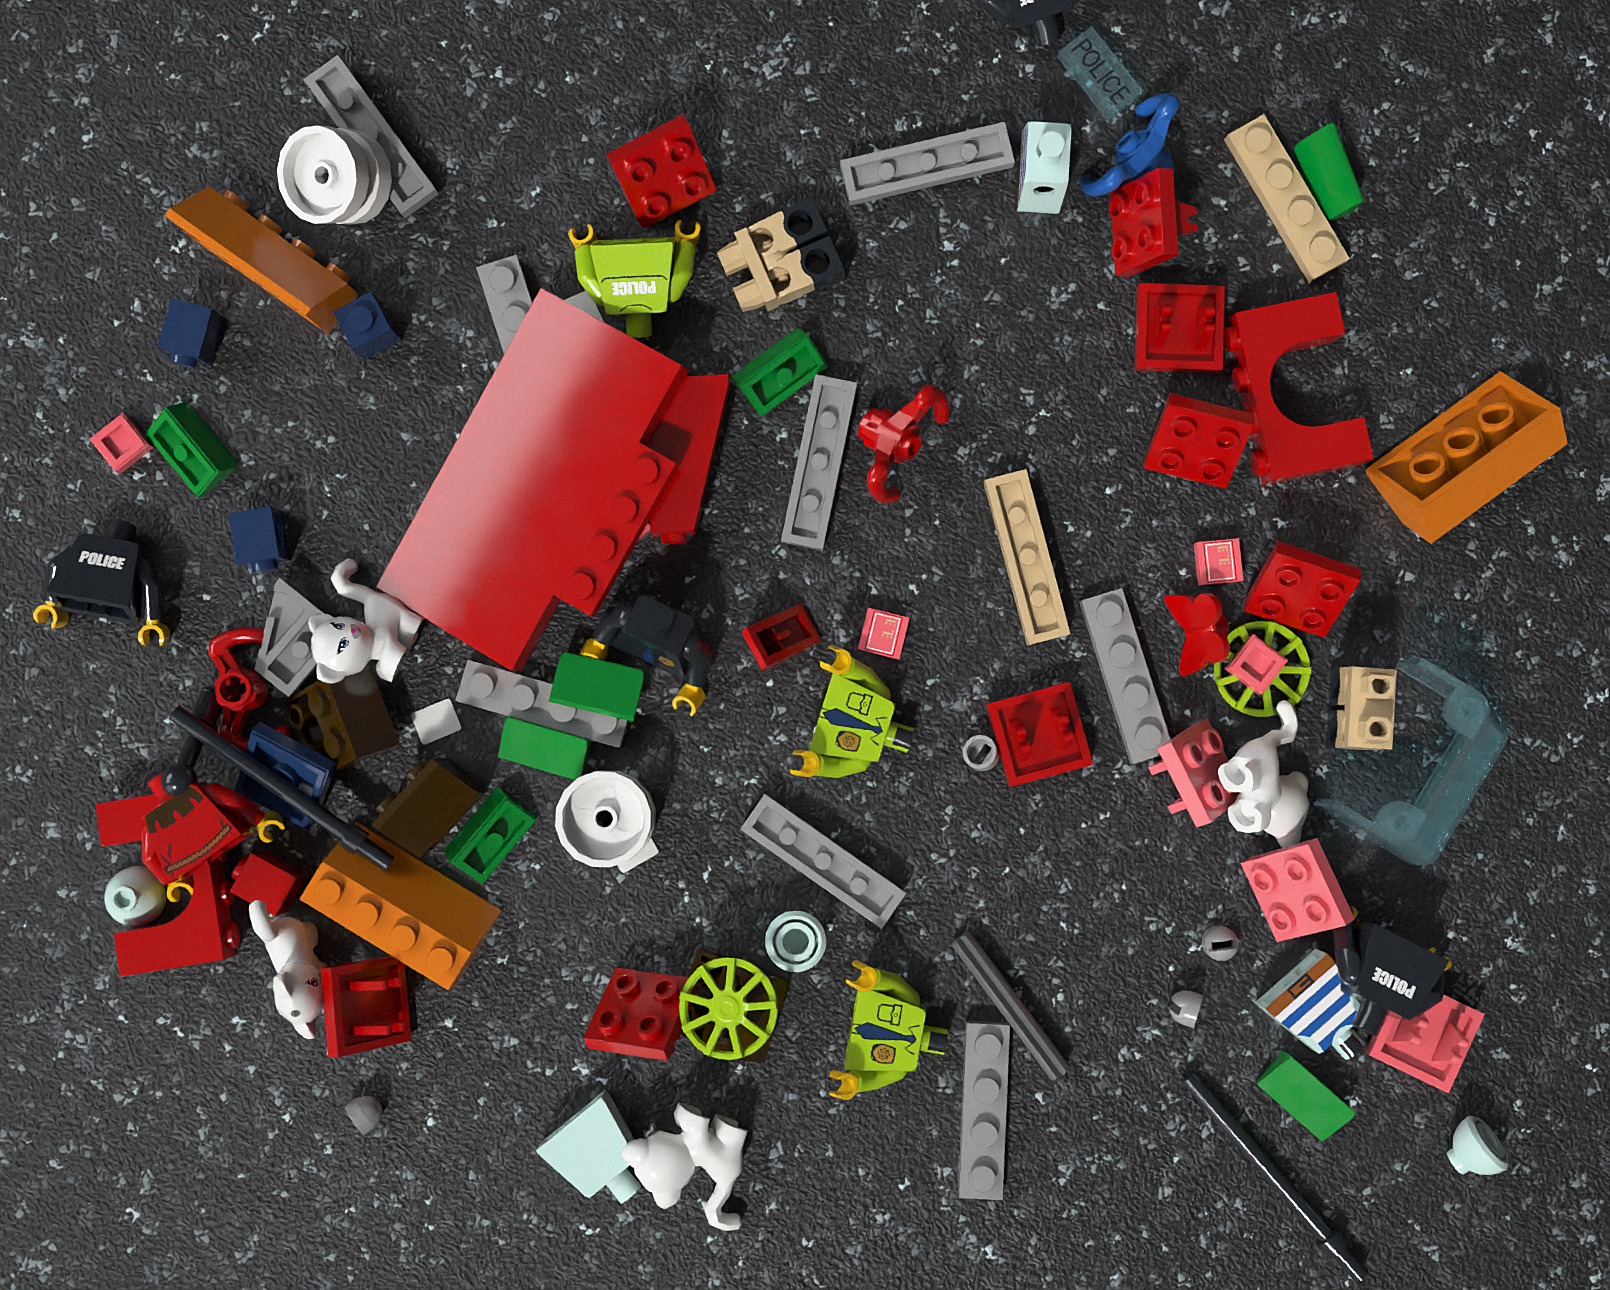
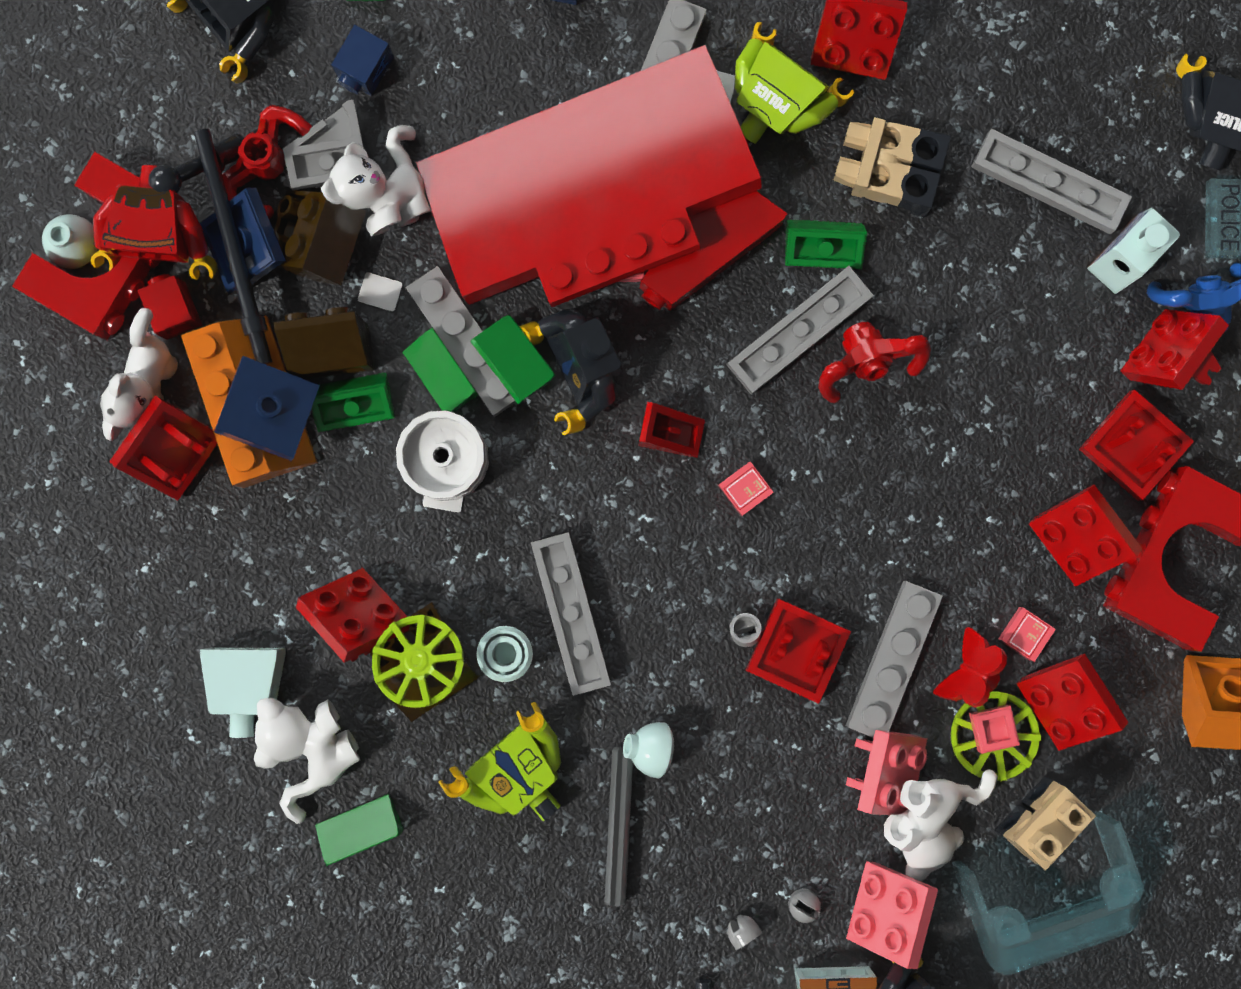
camera: 30 degrees right, 0 degrees up
(364, 1113) = (103, 524): light grey hinge -> none
(424, 901) = (266, 408): none -> dark blue plate
(794, 1190) = (358, 829): none -> slope
(852, 722) = (672, 532): lime torso -> none
(983, 919) = (651, 749): none -> light aqua brick
(983, 1110) = (539, 884): light grey plate -> none
(1026, 557) = (892, 518): tan plate -> none

